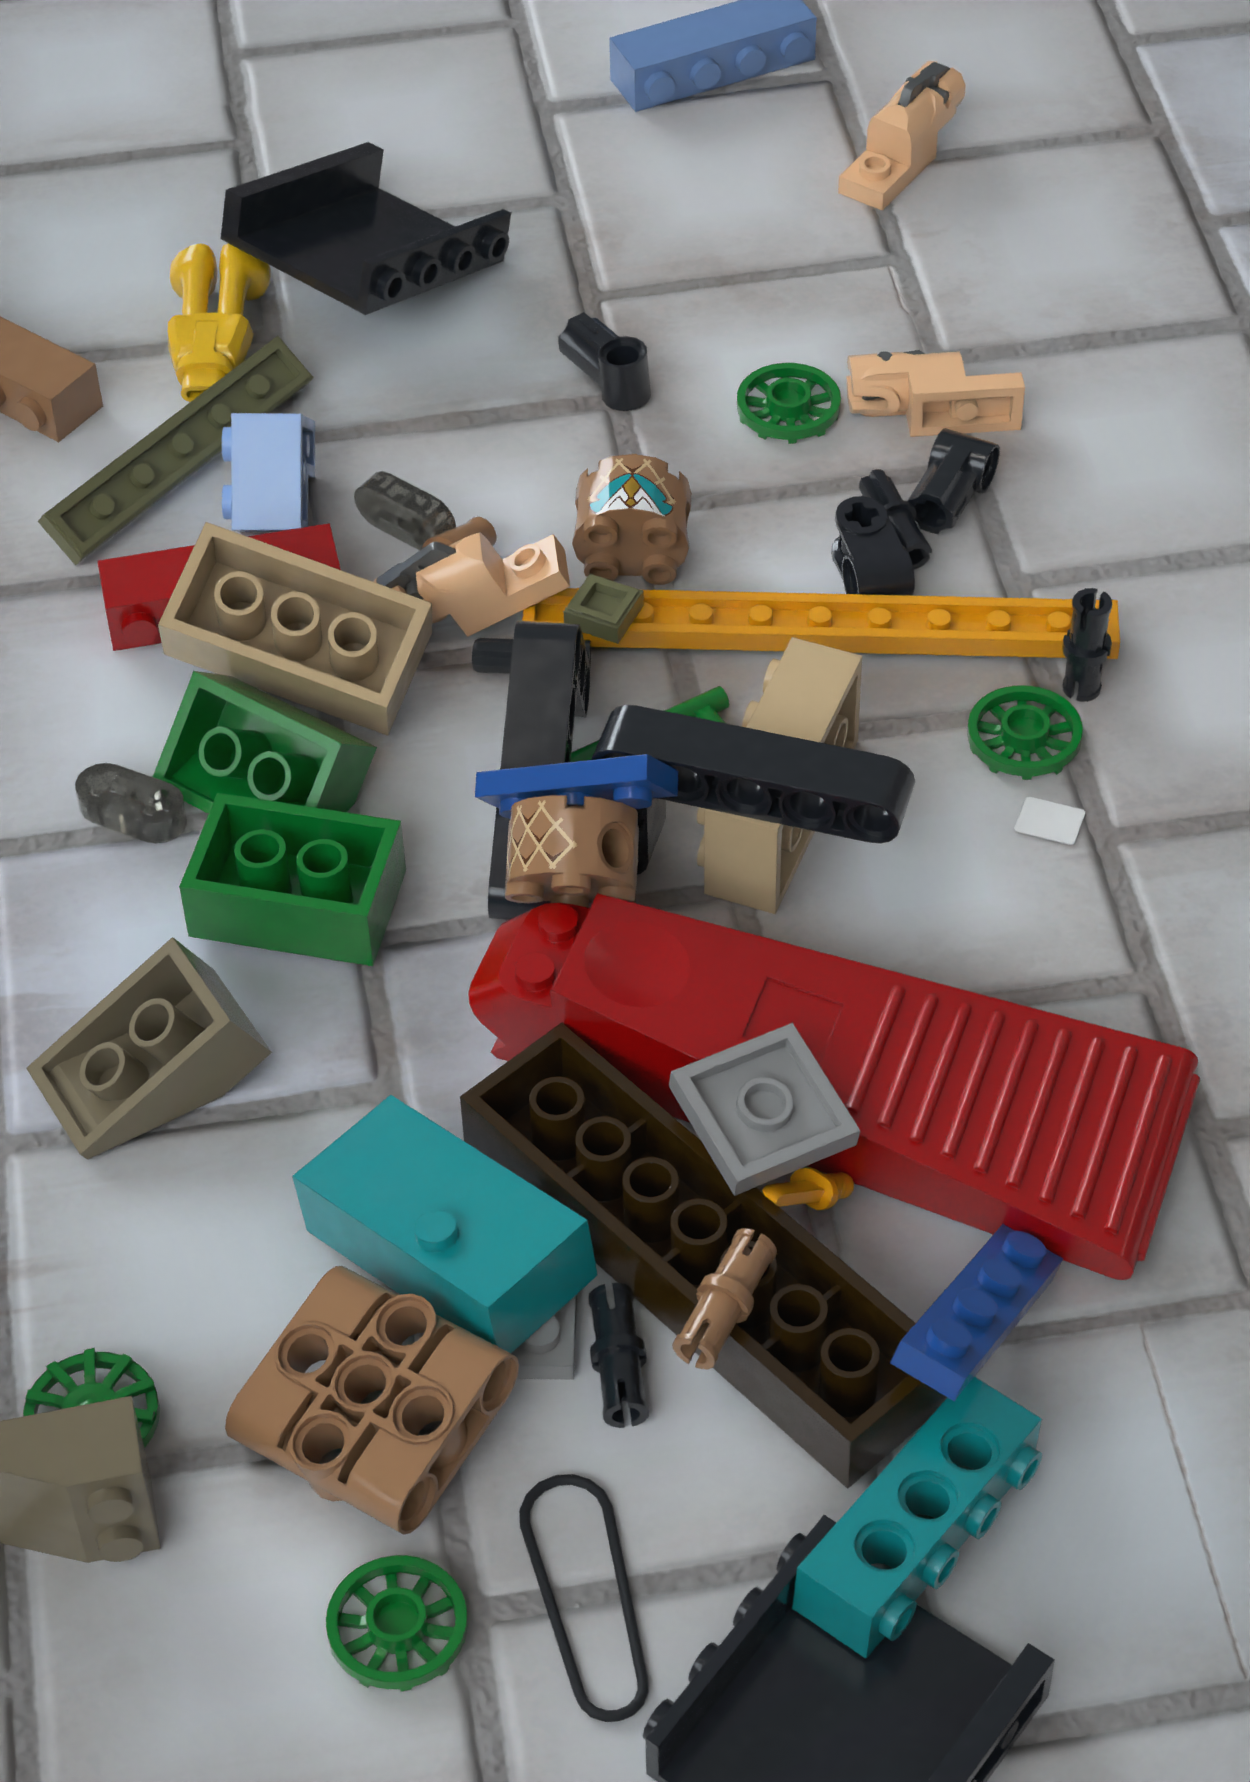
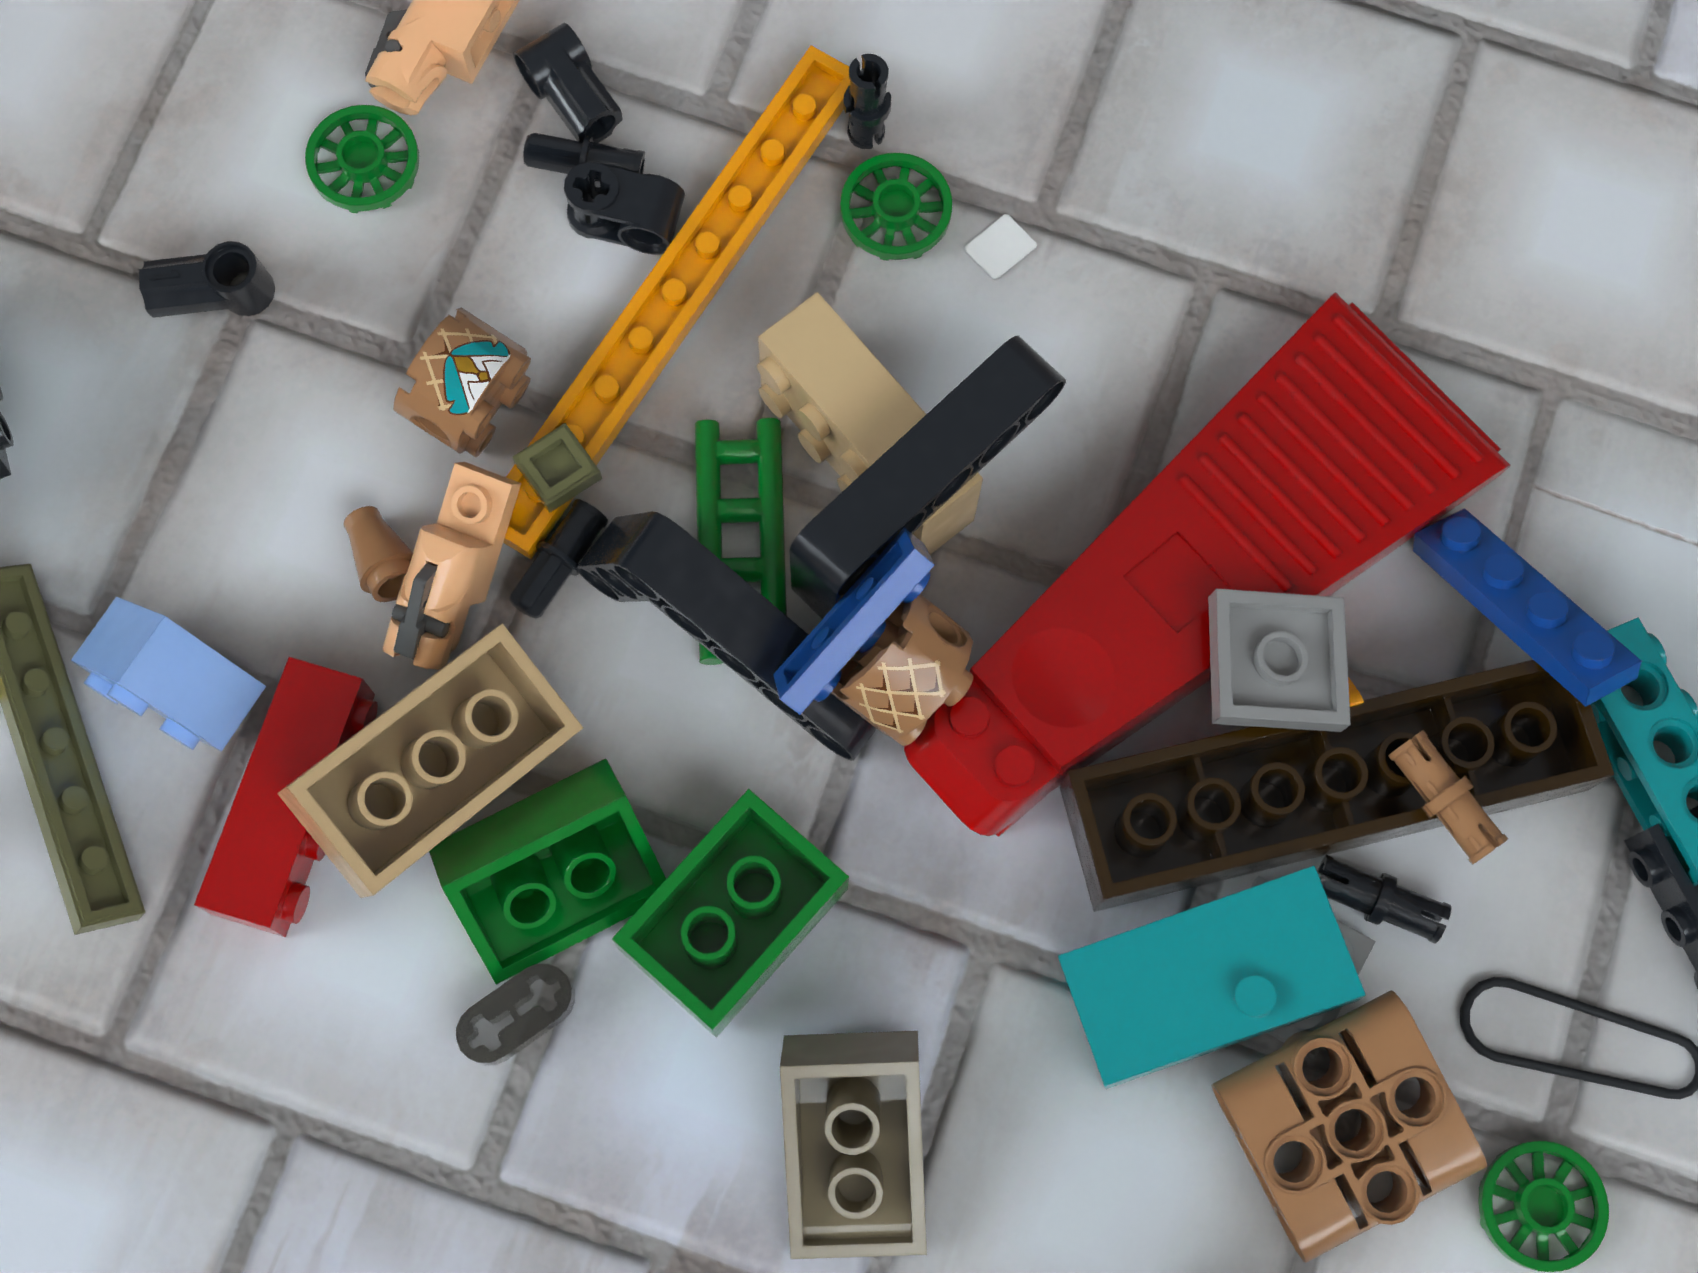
camera: 65 degrees left, 25 degrees up
(402, 509) = (292, 575): clear smoke beam -> none

